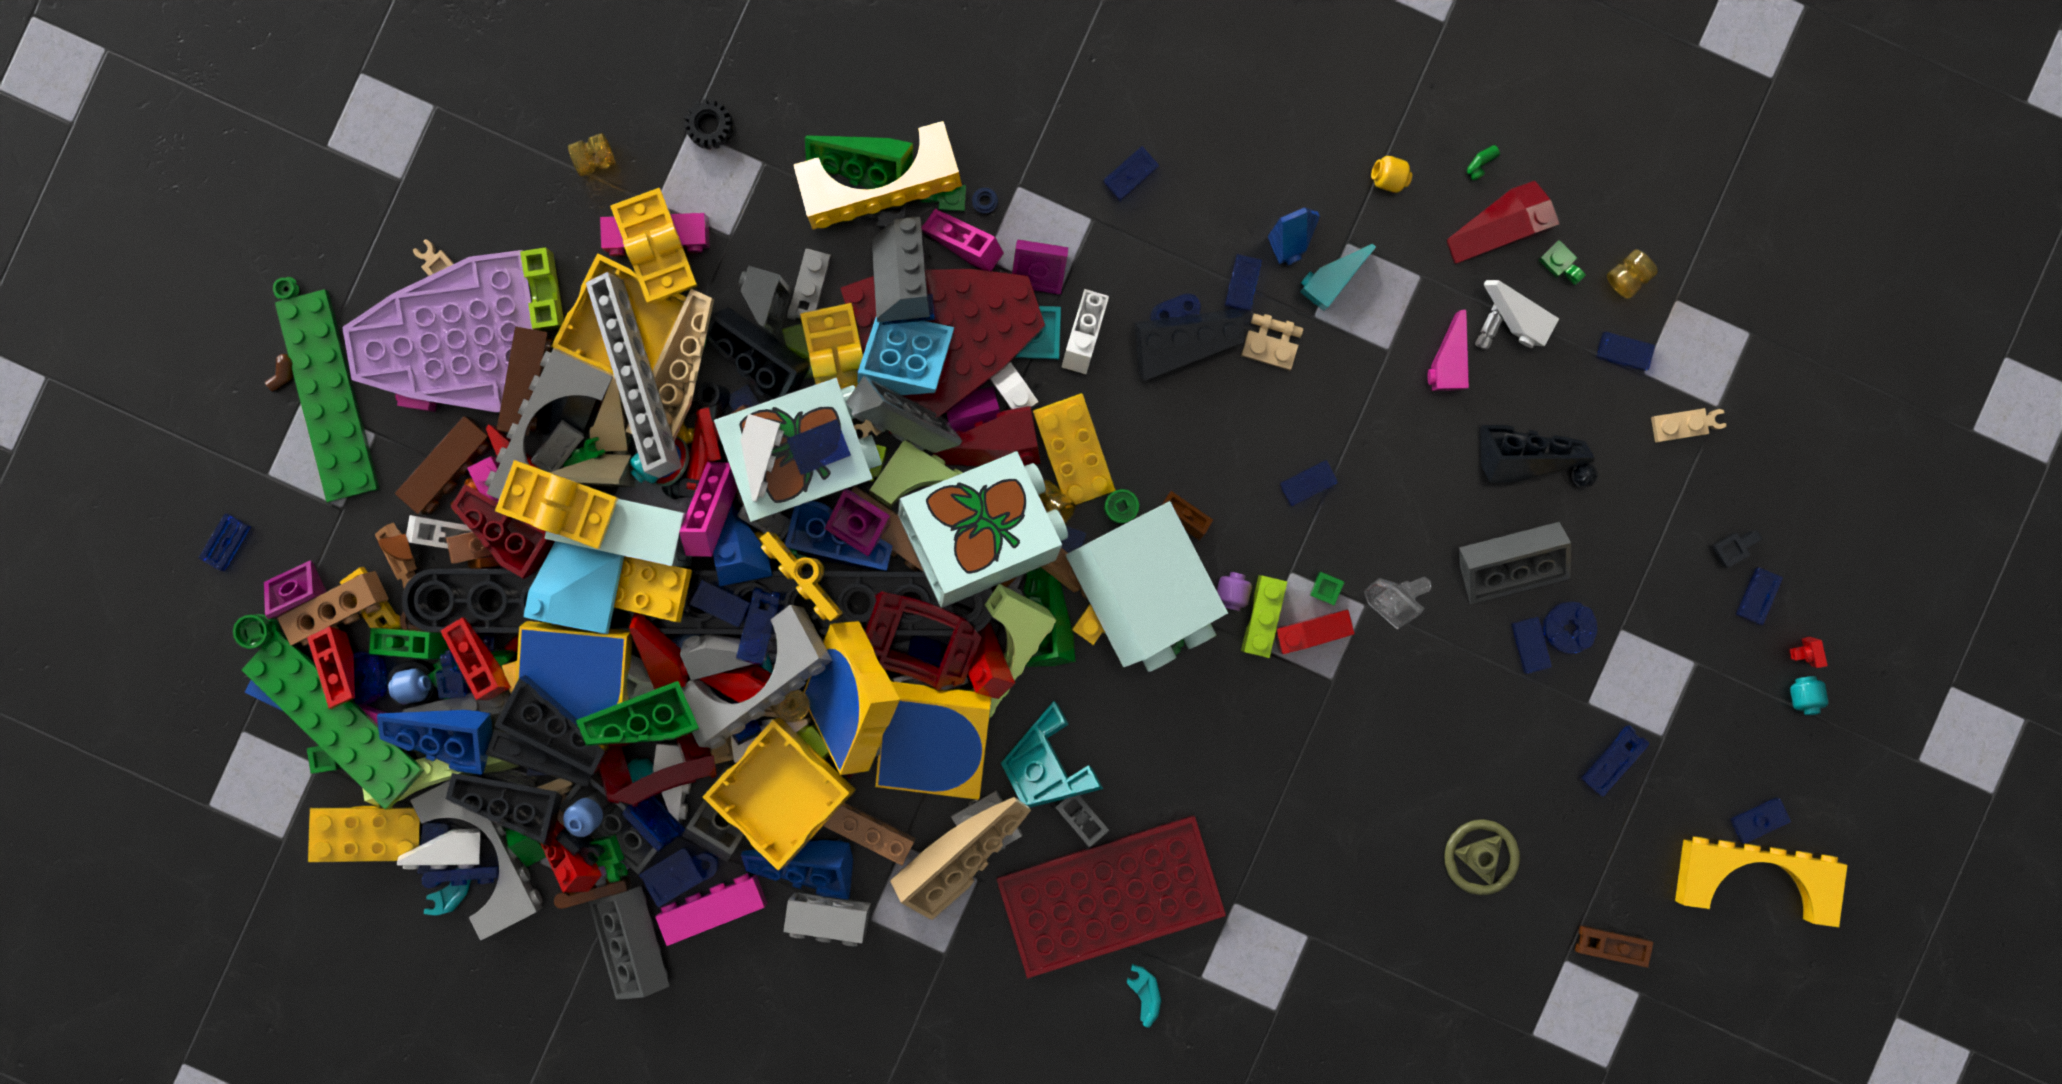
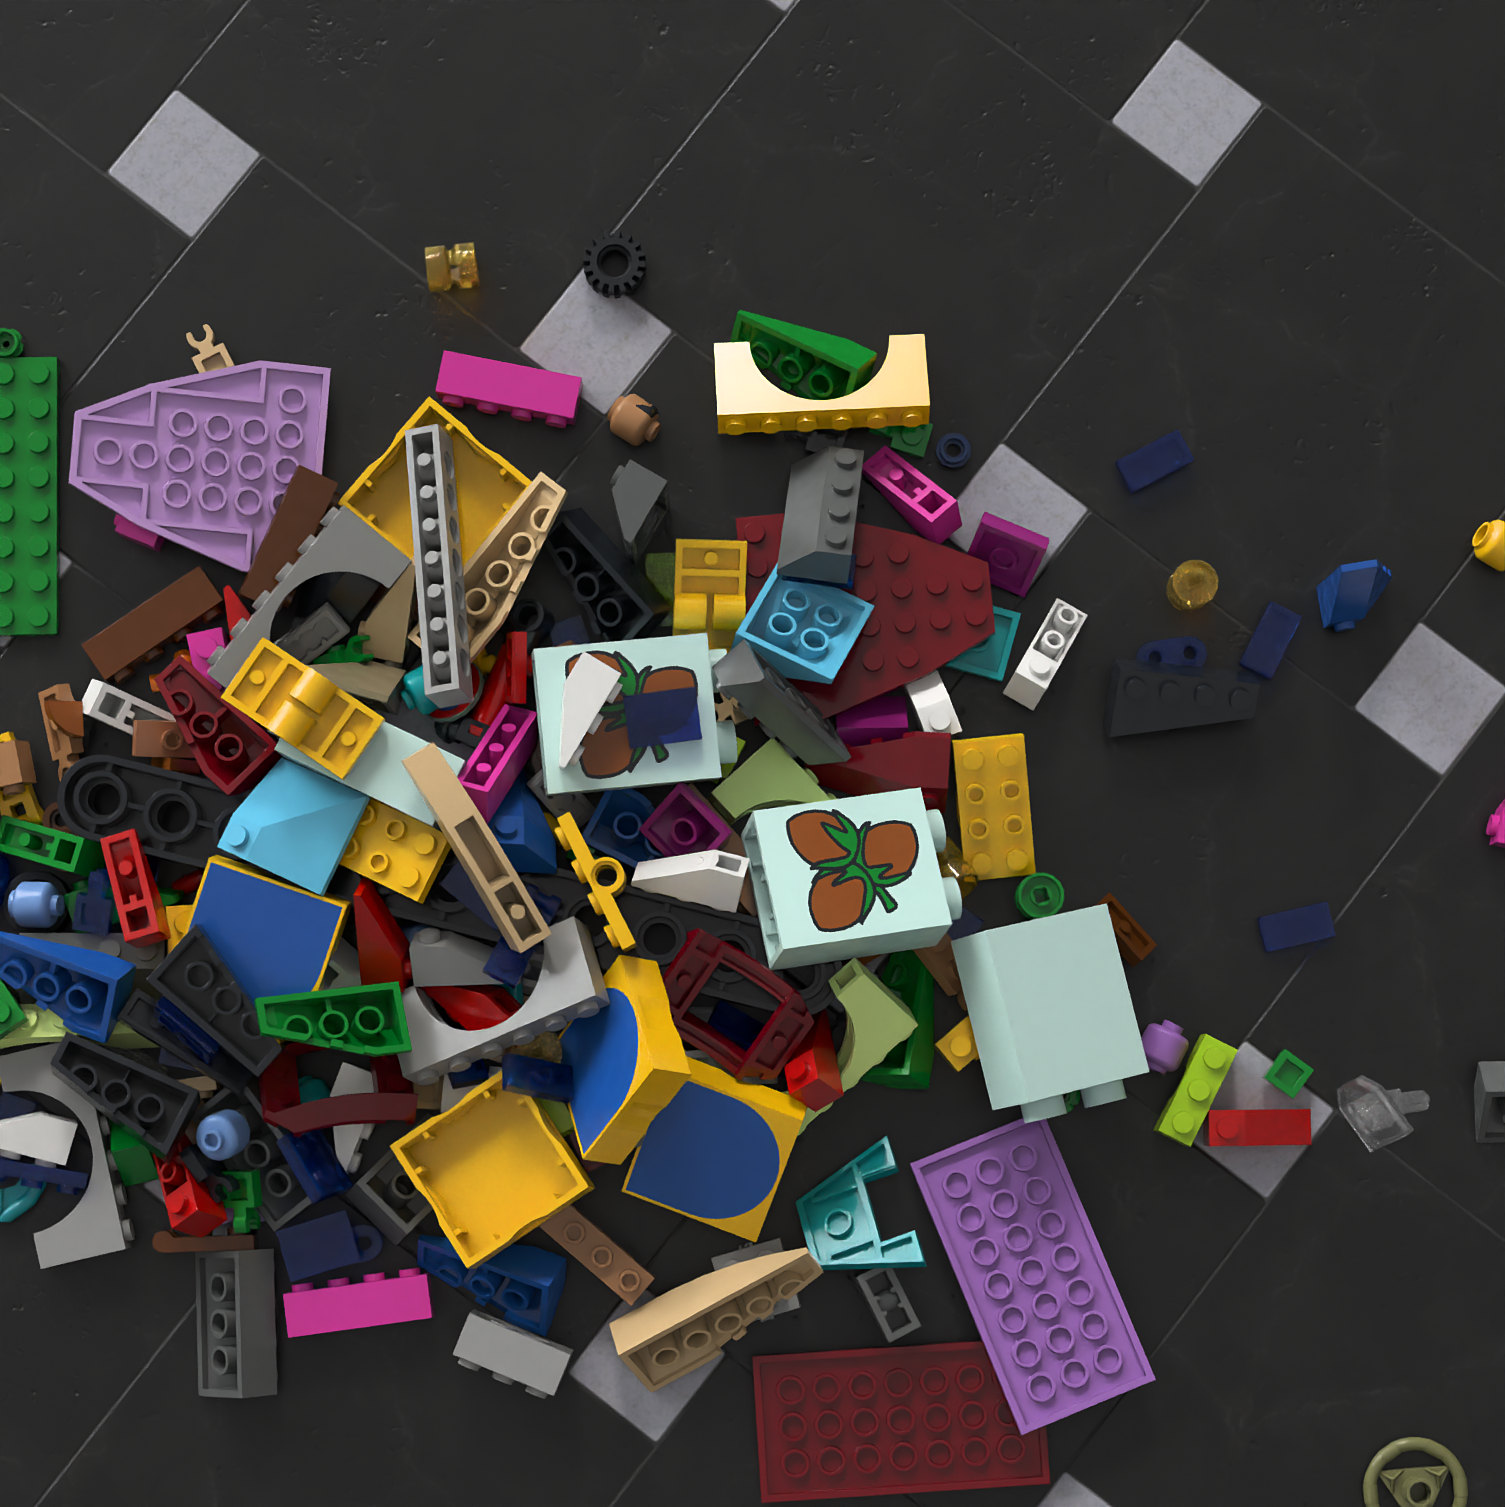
camera: 15 degrees right, 5 degrees down
(535, 752) = (186, 1029): none -> clear blue plate
(541, 274) = (345, 426): lime arch -> none
(653, 246) = (506, 404): yellow plate -> none
(706, 574) = (477, 849): none -> tan slope
(750, 234) = (634, 419): none -> medium nougat head
(794, 724) = (537, 1078): none -> clear blue plate
(809, 282) = (695, 502): light grey plate -> none
(874, 554) = (699, 877): none -> white slope
(1178, 257) = (1192, 585): none -> clear yellow wheel
(1178, 773) = (1032, 1273): none -> medium lavender plate
(1269, 349) = (1285, 737): tan plate -> none
(1332, 278) = (1388, 663): teal slope -> none

